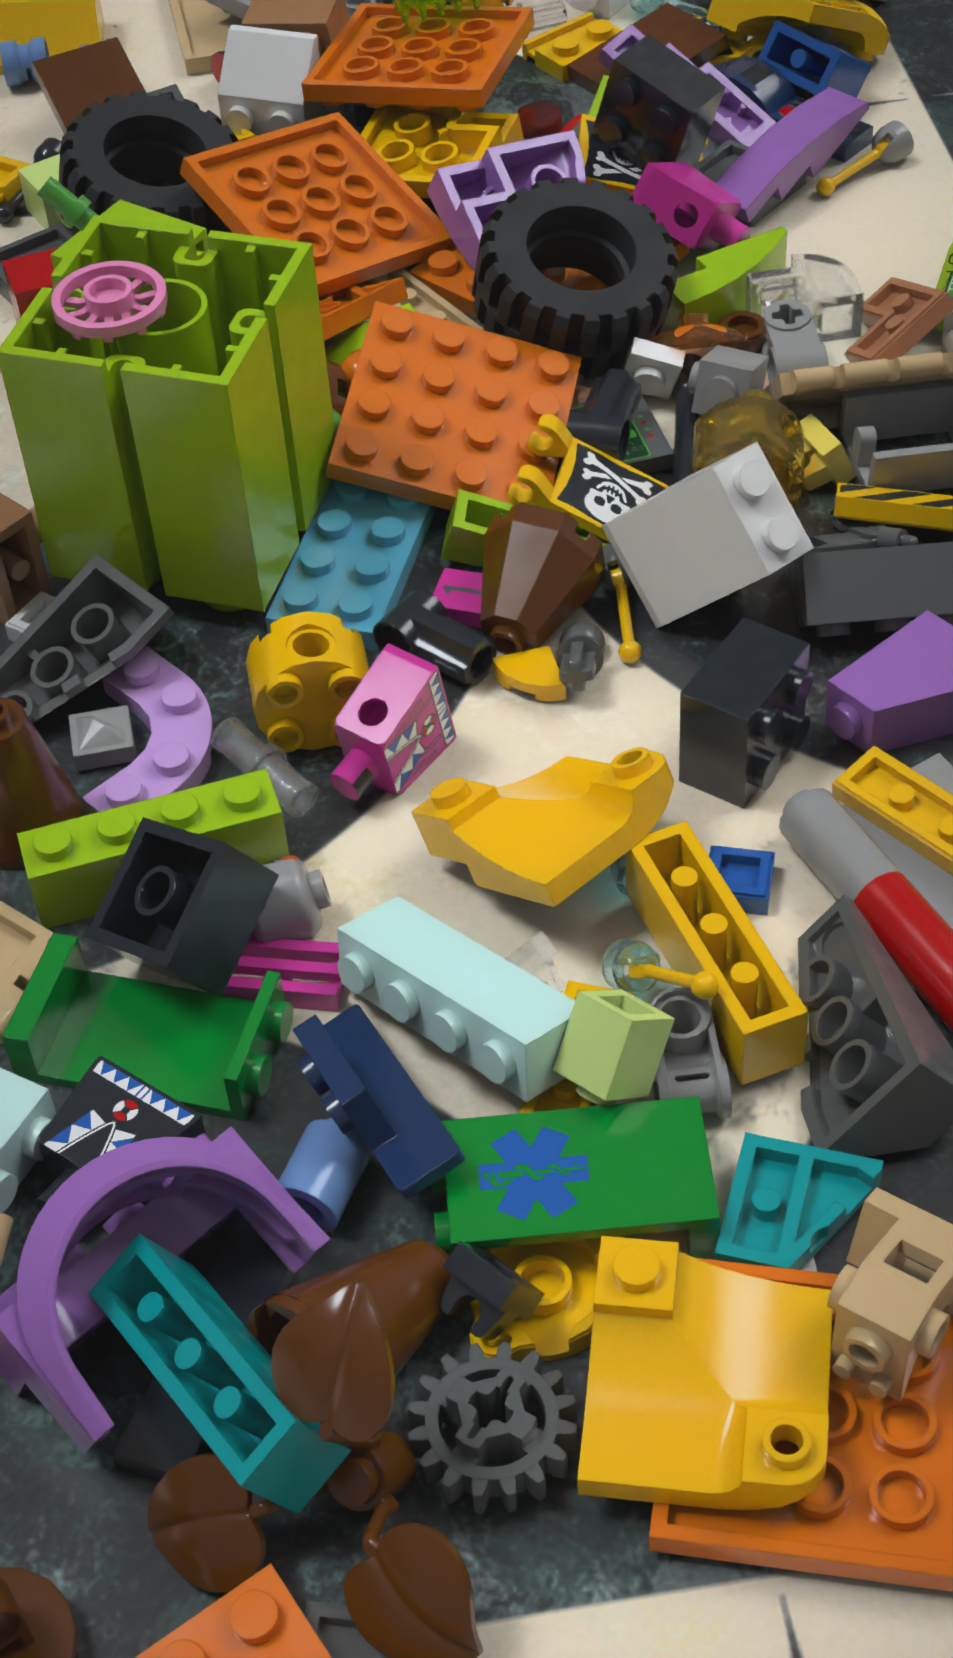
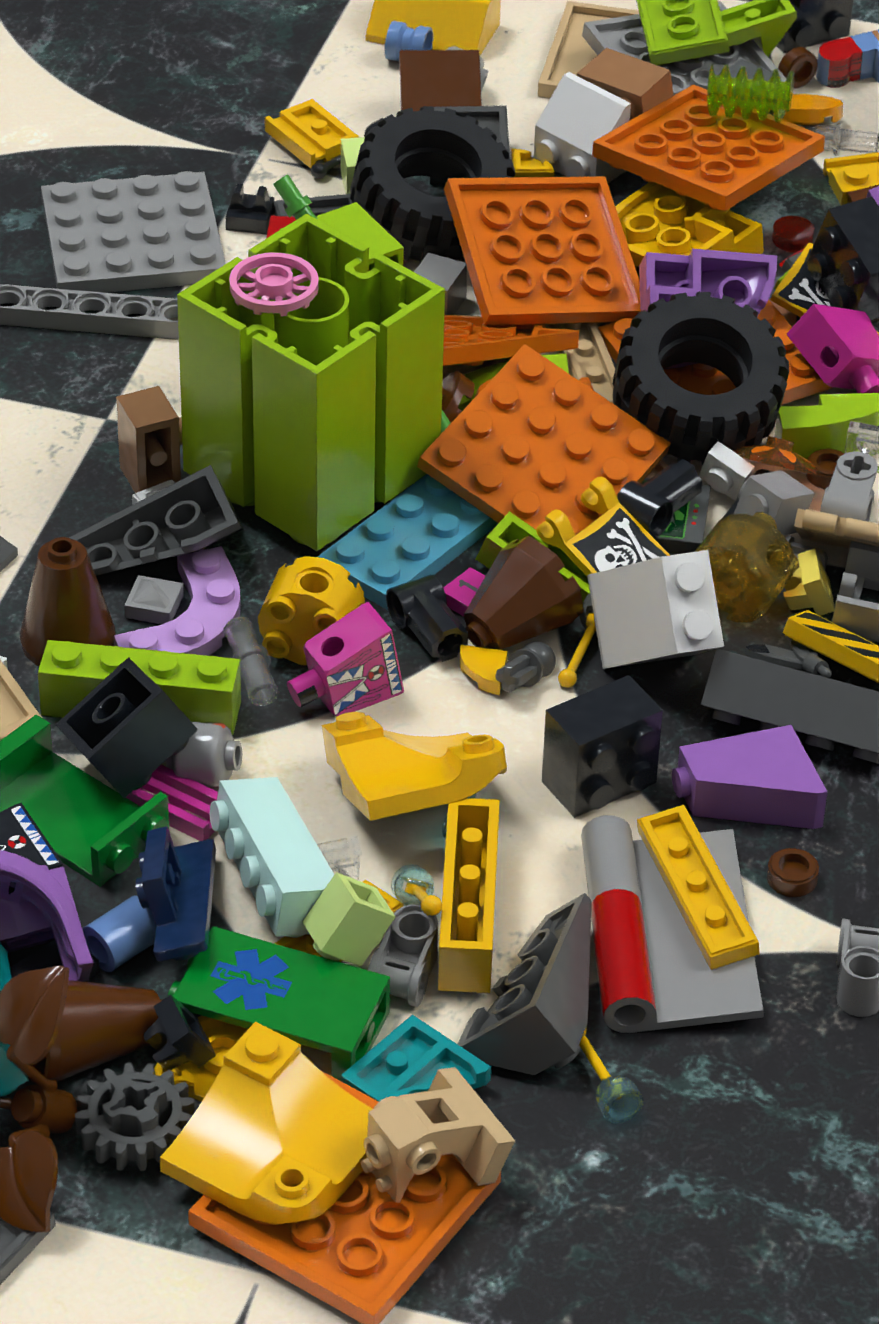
camera: 20 degrees right, 5 degrees down
(747, 875) = (532, 861): blue tile -> none

